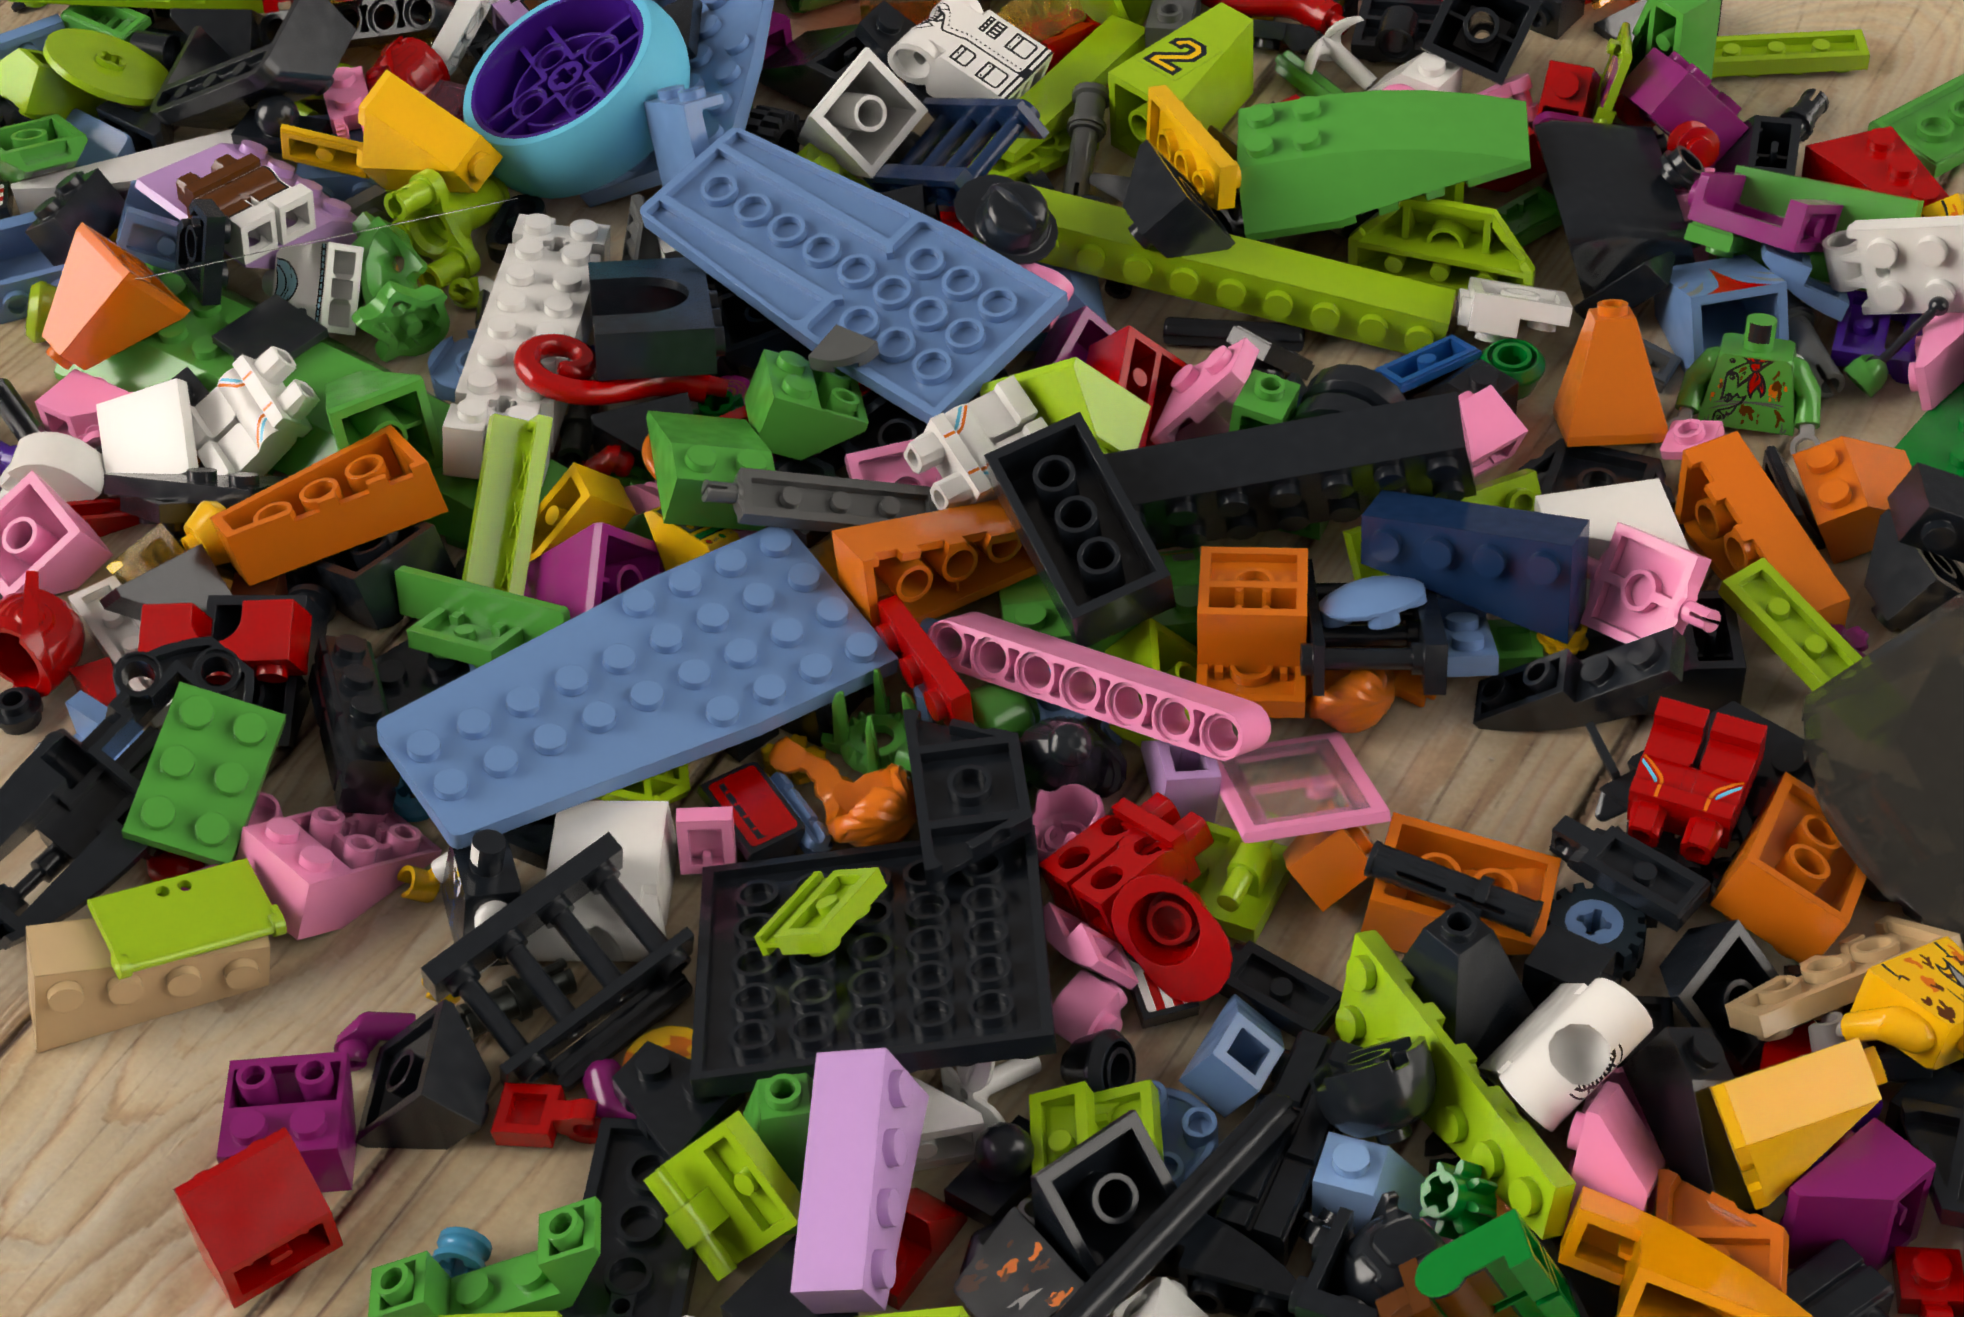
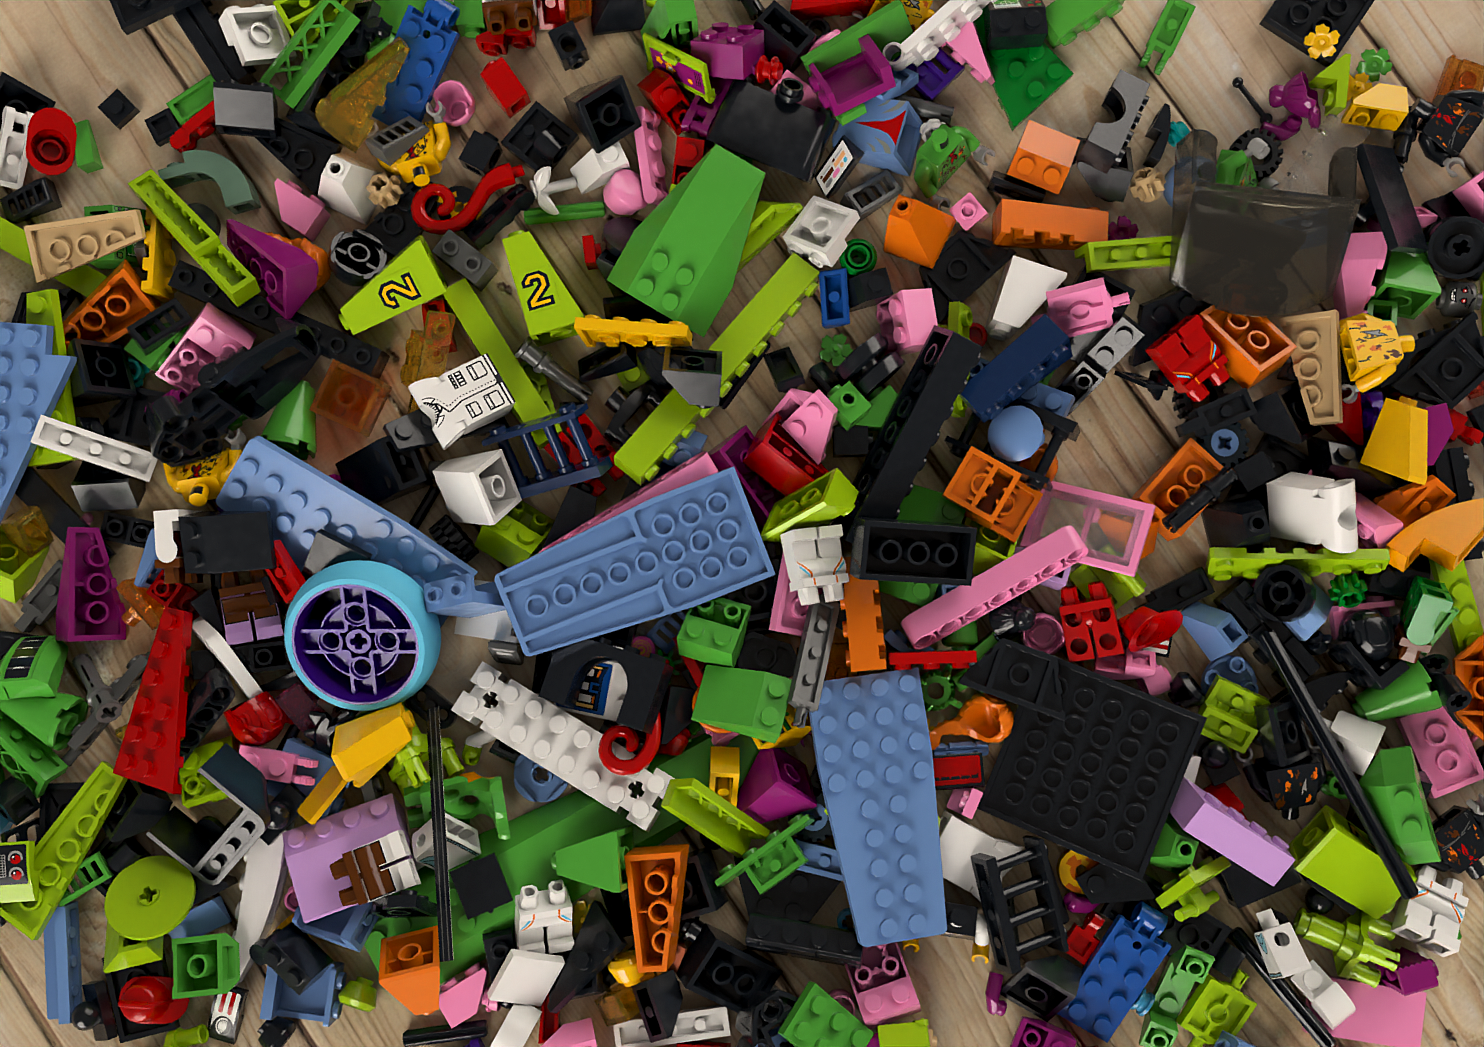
camera: 65 degrees left, 40 degrees up
(269, 639) = (715, 1012): red arch -> none
(499, 1176) = (1118, 971): none -> blue hinge
(821, 912) = (1064, 778): lime plate -> none
(842, 348) = (707, 600): dark grey tile -> none
(1007, 217) = (655, 466): black piece -> none
(1871, 371) = (955, 92): hinge -> none

